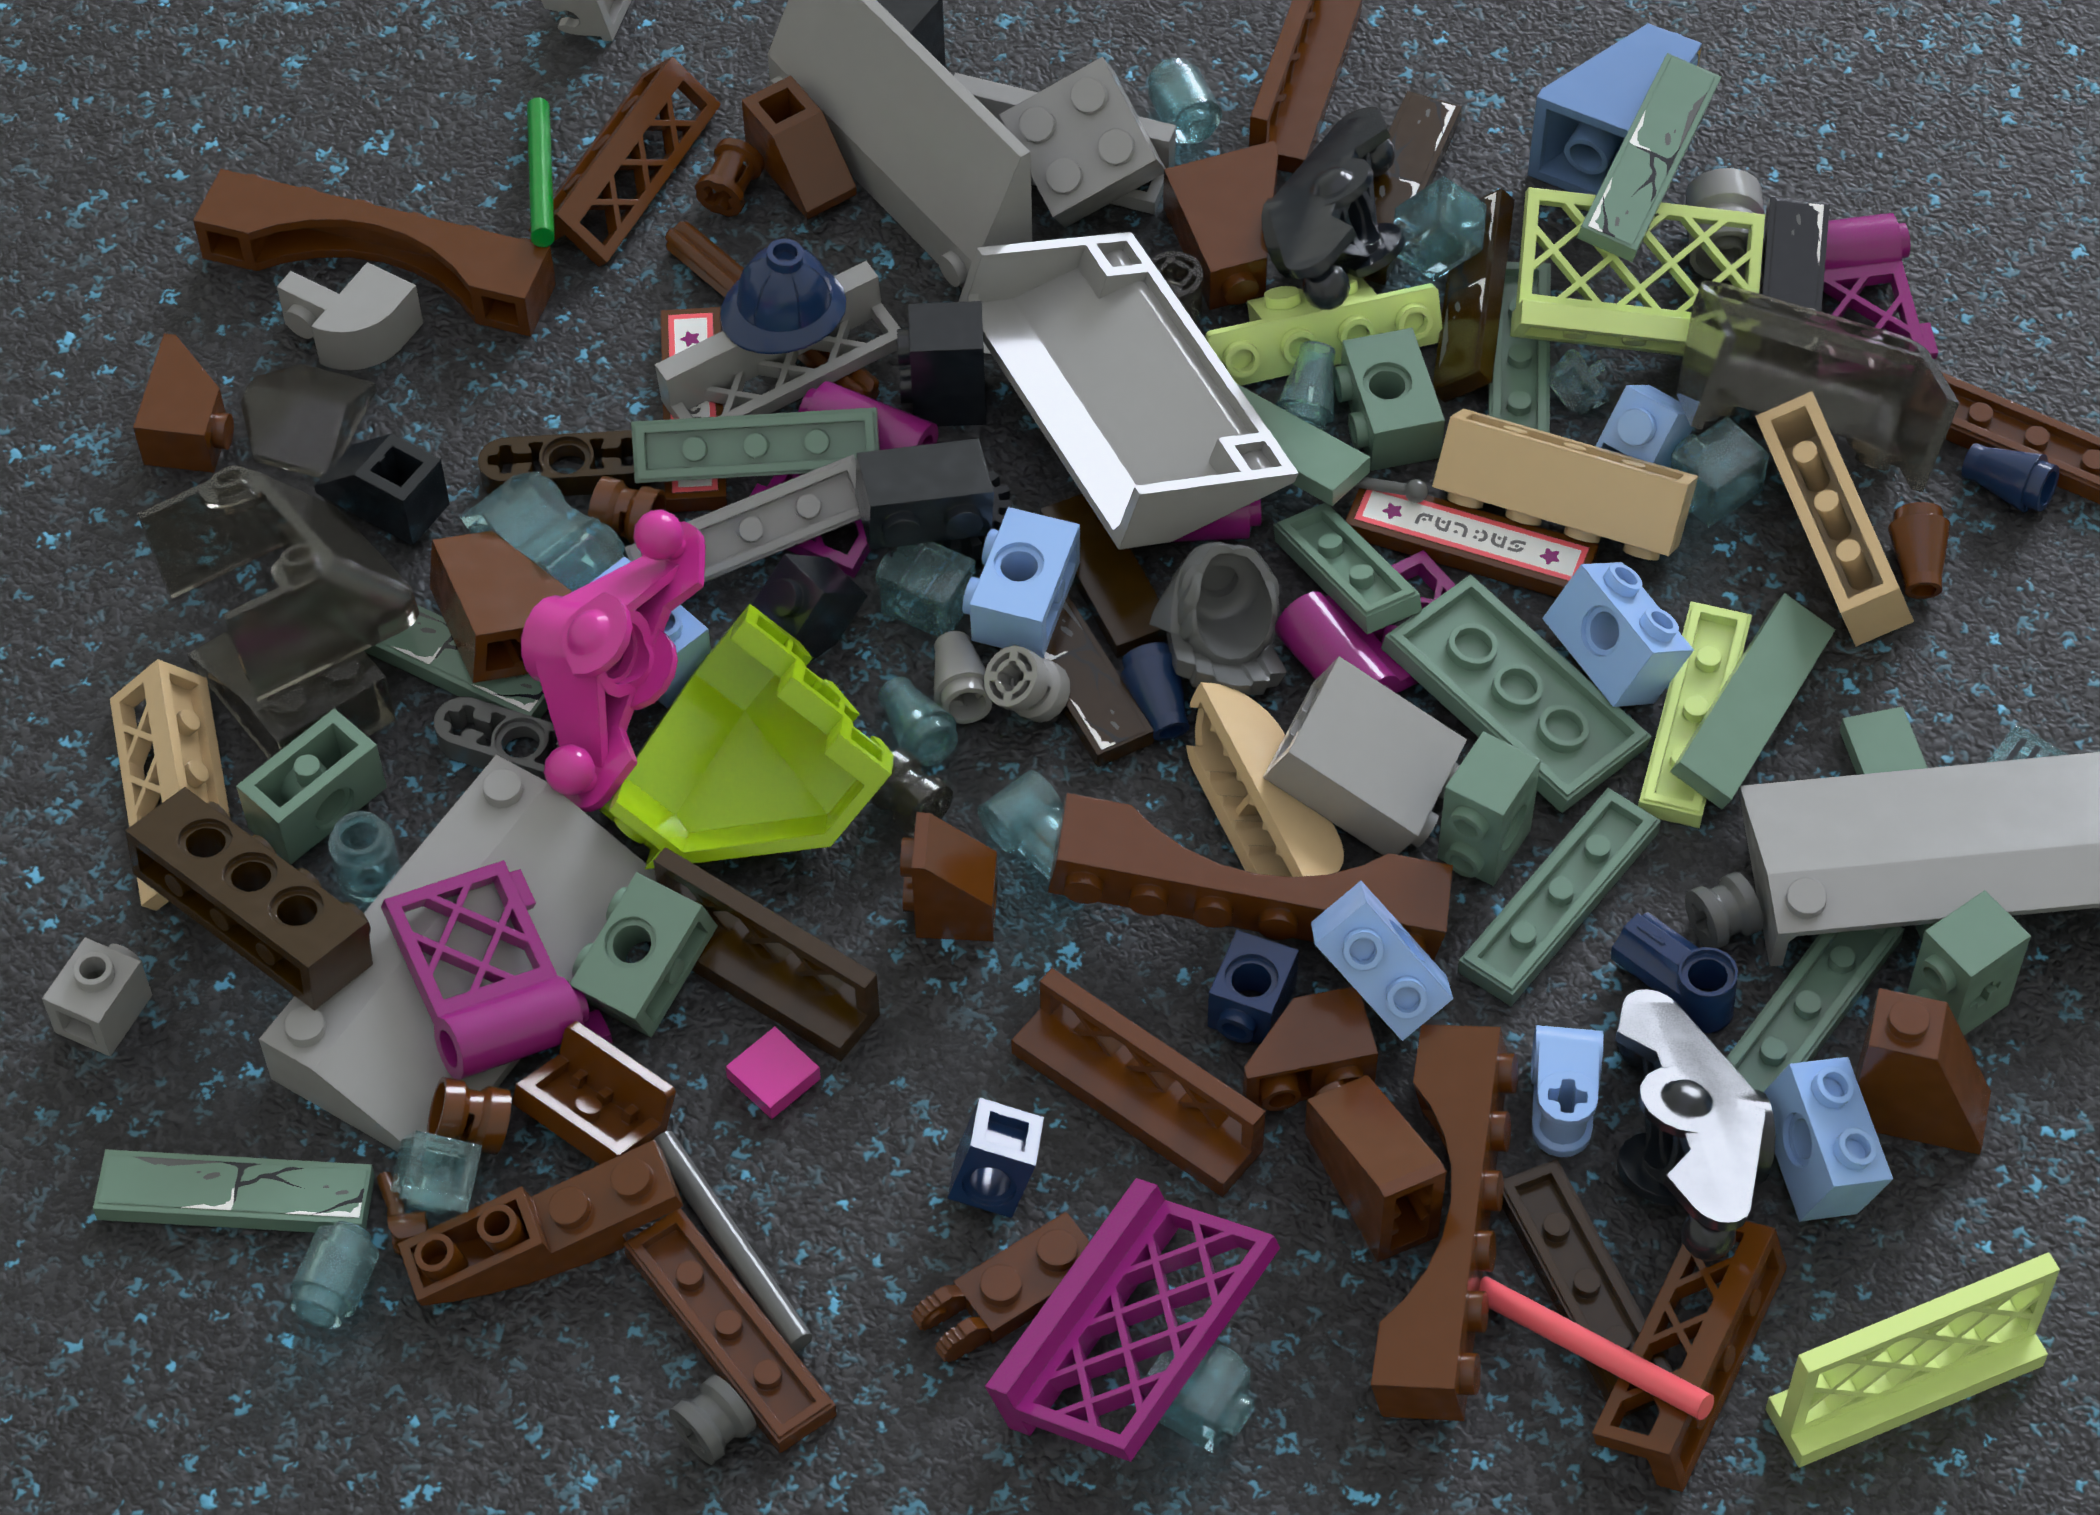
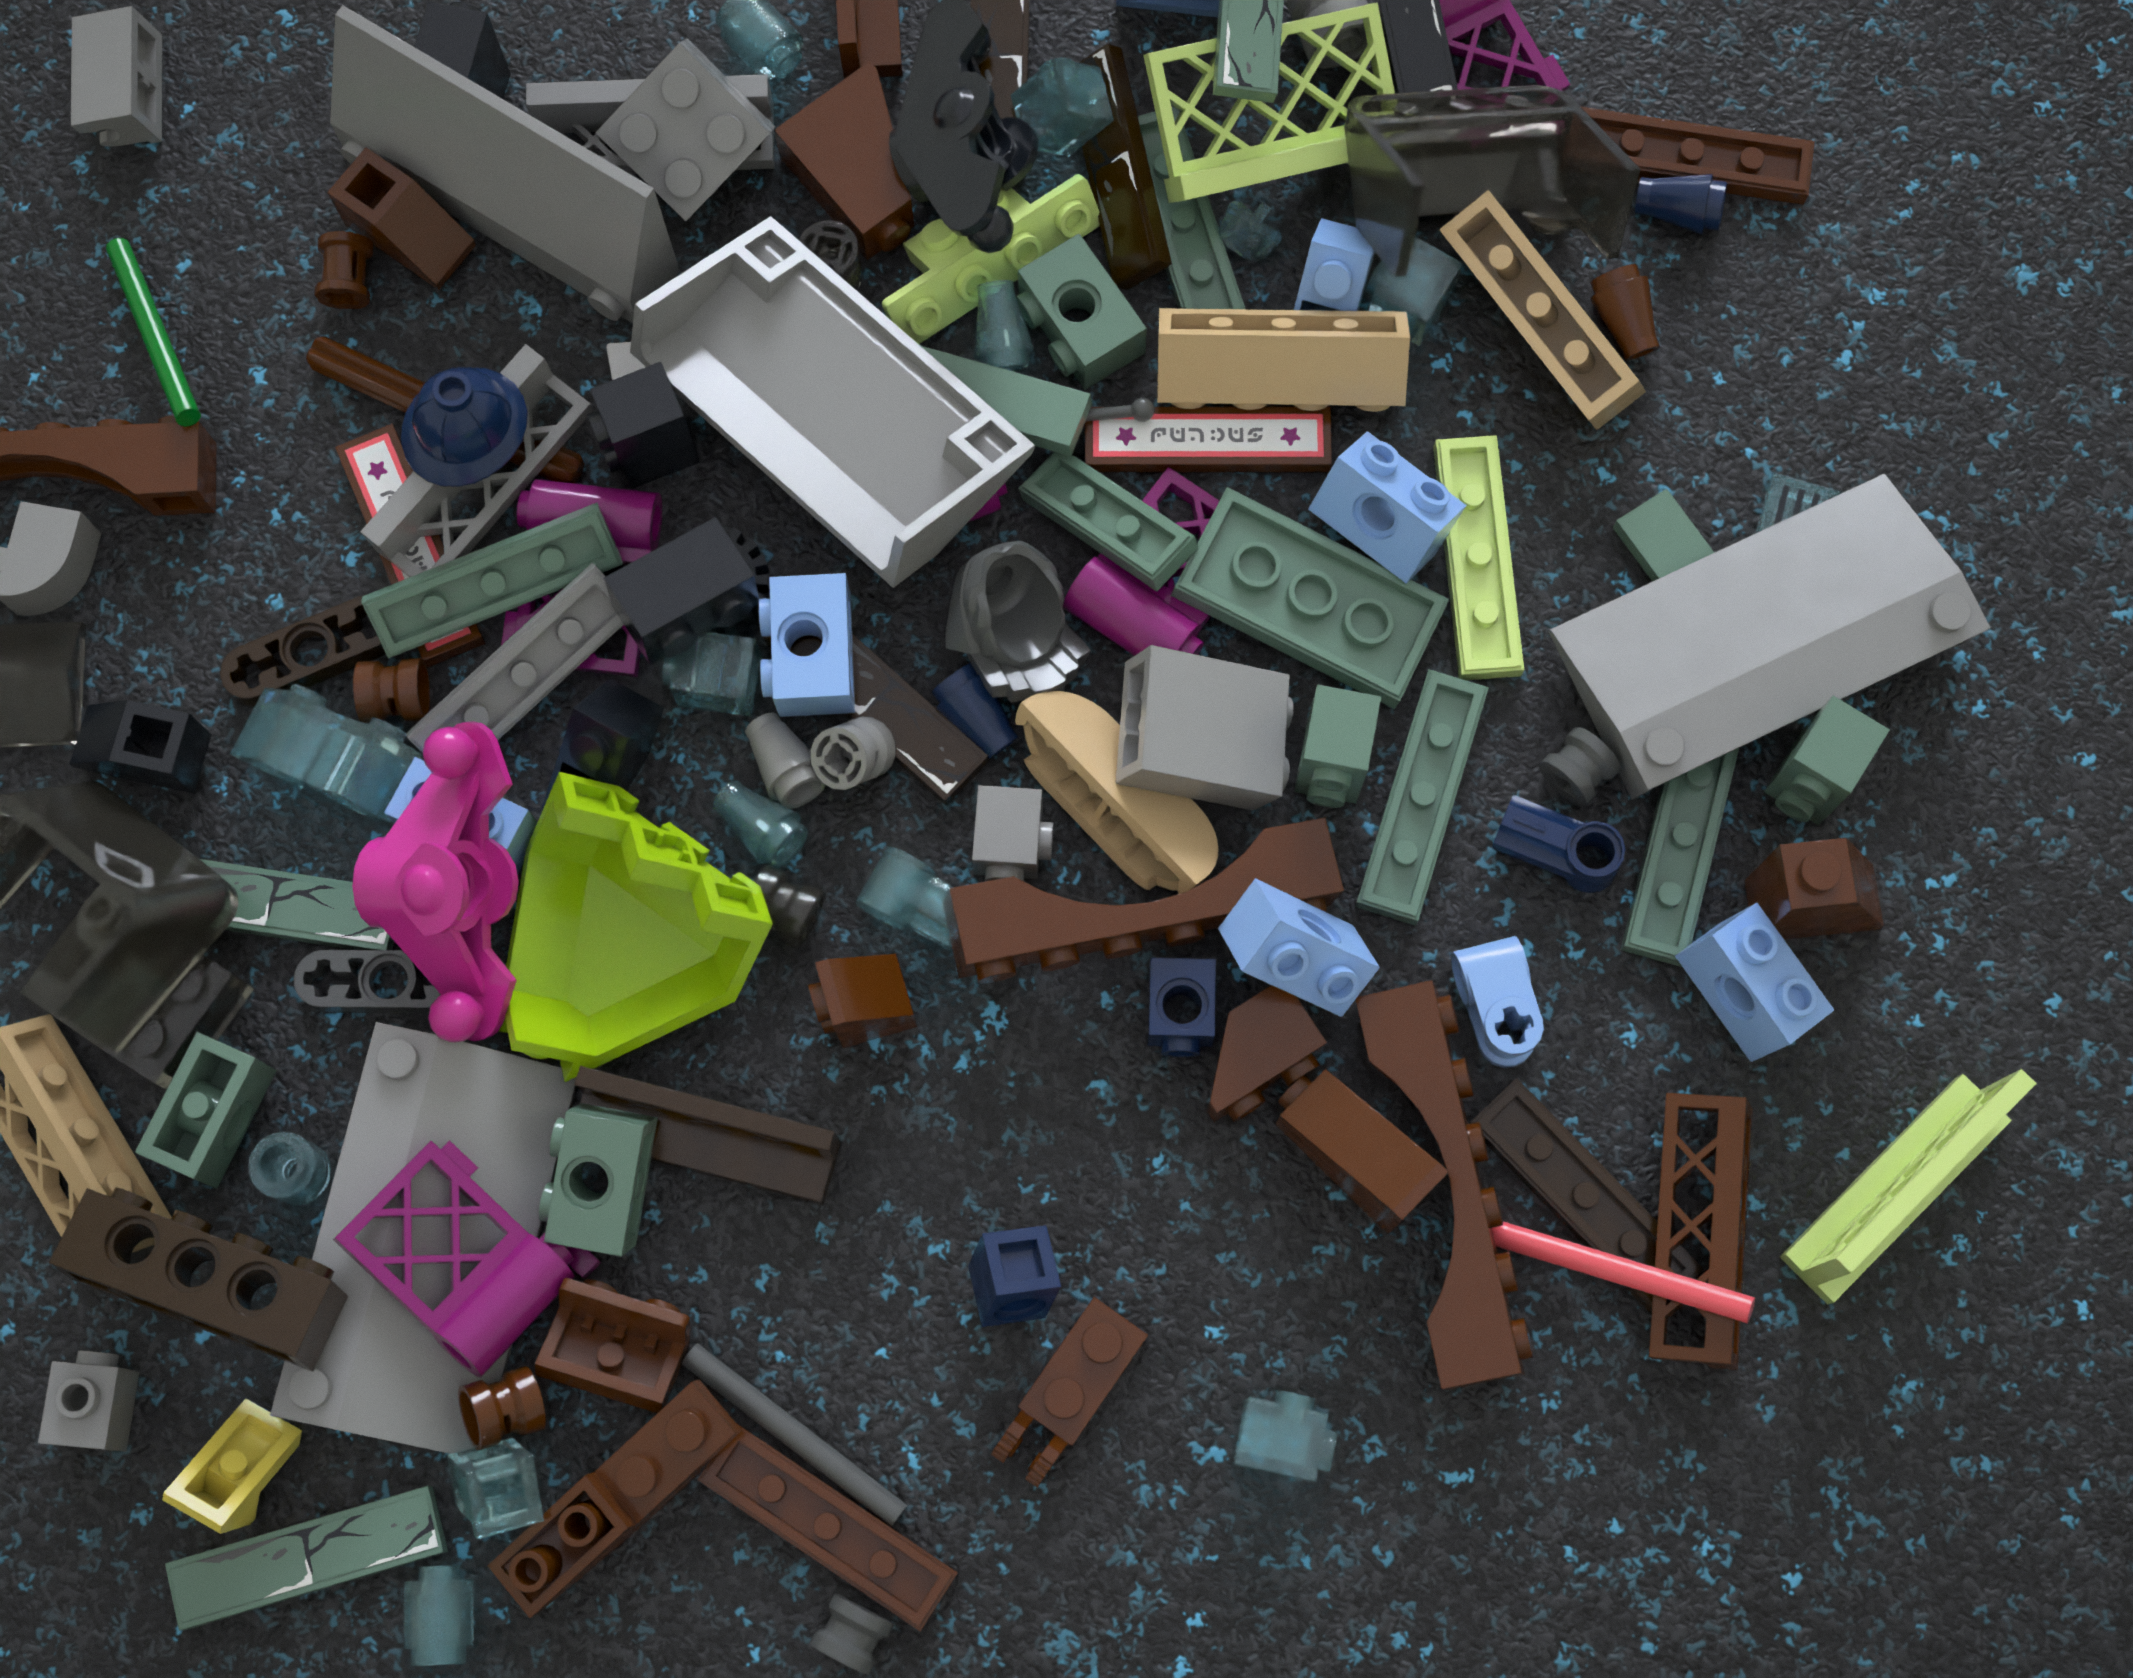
camera: 20 degrees left, 20 degrees up
(202, 1082) = (233, 1468): none -> light yellow slope
(400, 1224) = (487, 1547): reddish brown hand -> none
(486, 598) = (302, 842): reddish brown slope -> none
(609, 152) = (213, 275): reddish brown fence -> none
(773, 1072) = (766, 1245): dark pink tile -> none
(1092, 1305) = (1150, 1393): magenta fence -> none
(1110, 581) = (897, 616): dark brown tile -> none
(1141, 1084) = (1112, 1142): reddish brown fence -> none
(1154, 785) = (1010, 833): none -> light grey brick
(1703, 1124) = (1644, 1022): piece -> none
(1752, 701) = (1531, 532): sand green tile -> none

